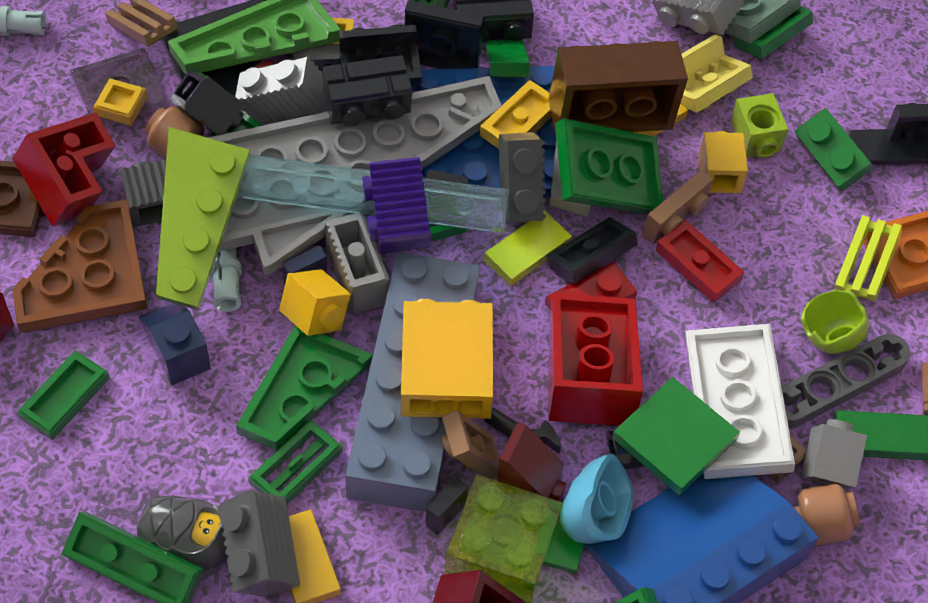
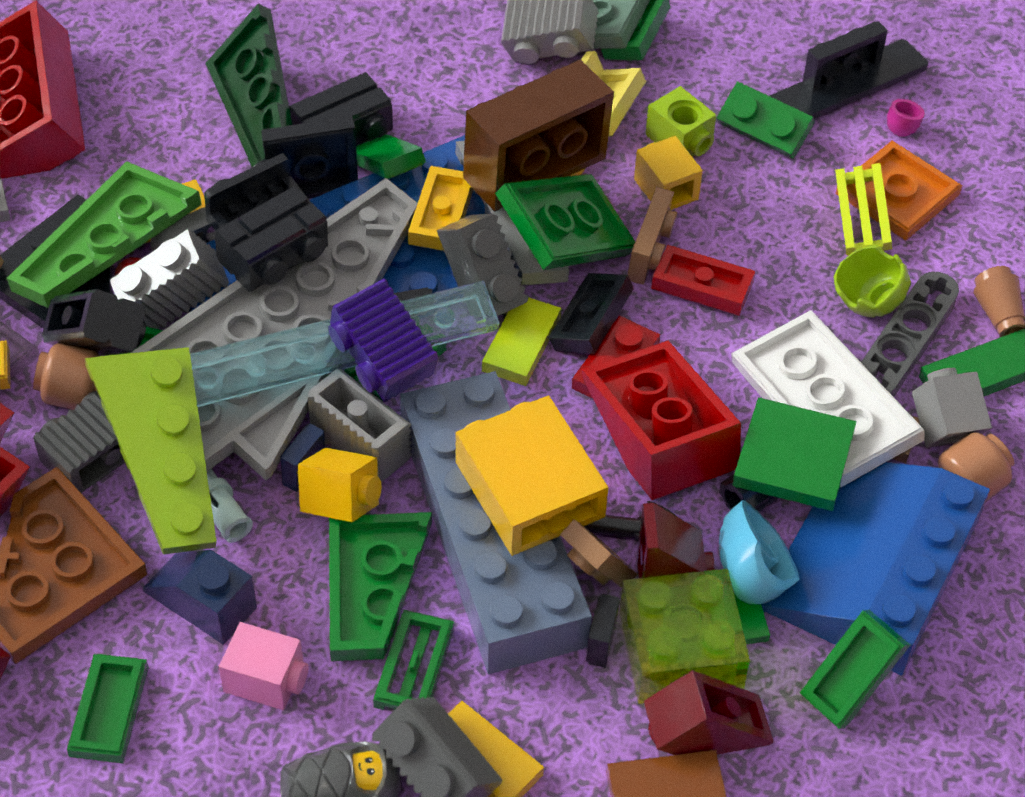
camera: 25 degrees left, 5 degrees down
(183, 415) = (263, 666): none -> bright pink brick

